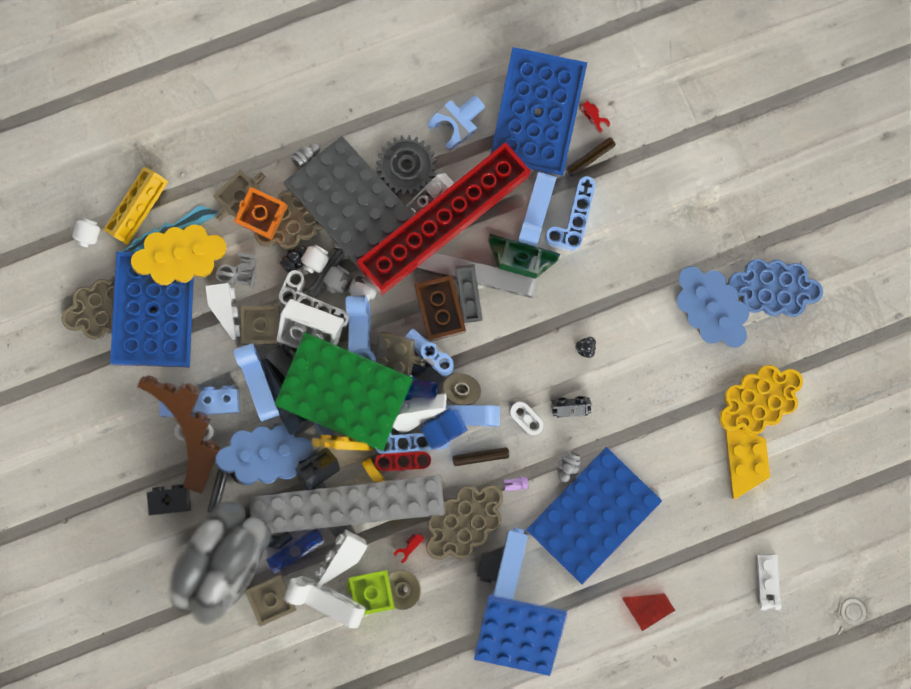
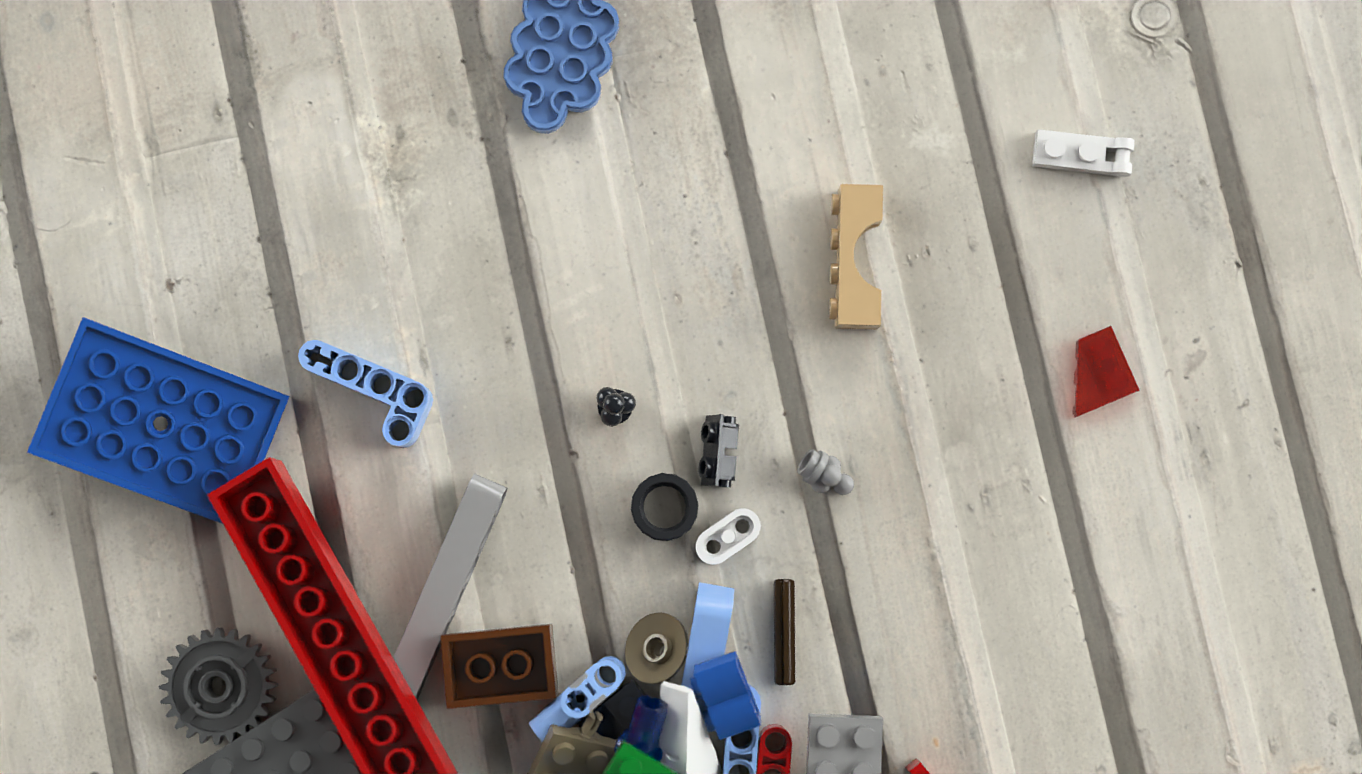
camera: 80 degrees left, 0 degrees up
(429, 193) = (275, 648): white slope -> none
(458, 119) = (148, 574): light blue connector -> none
(465, 522) = (900, 679): dark tan plate -> none
(469, 293) = (479, 607): dark grey tile -> none
(489, 567) = (988, 649): black brick -> none
(510, 564) = (995, 612): light blue slope -> none
(516, 484) = (844, 572): lavender pin -> none
(520, 635) = (1120, 614): blue plate -> none
(521, 257) = (428, 498): dark green wing -> none
(537, 209) = (344, 454): light blue beam -> none
(551, 382) = (650, 484): none -> black tyre
(591, 156) = (263, 339): dark brown axle -> none
(592, 114) = (181, 324): red plate -> none
(594, 515) = (921, 443): blue plate -> none
(712, 307) = (577, 165): medium blue plate -> none
(713, 462) = (856, 301): none -> tan arch
(746, 461) = (862, 152): yellow wing -> none
(760, 400) = (759, 109): yellow plate -> none

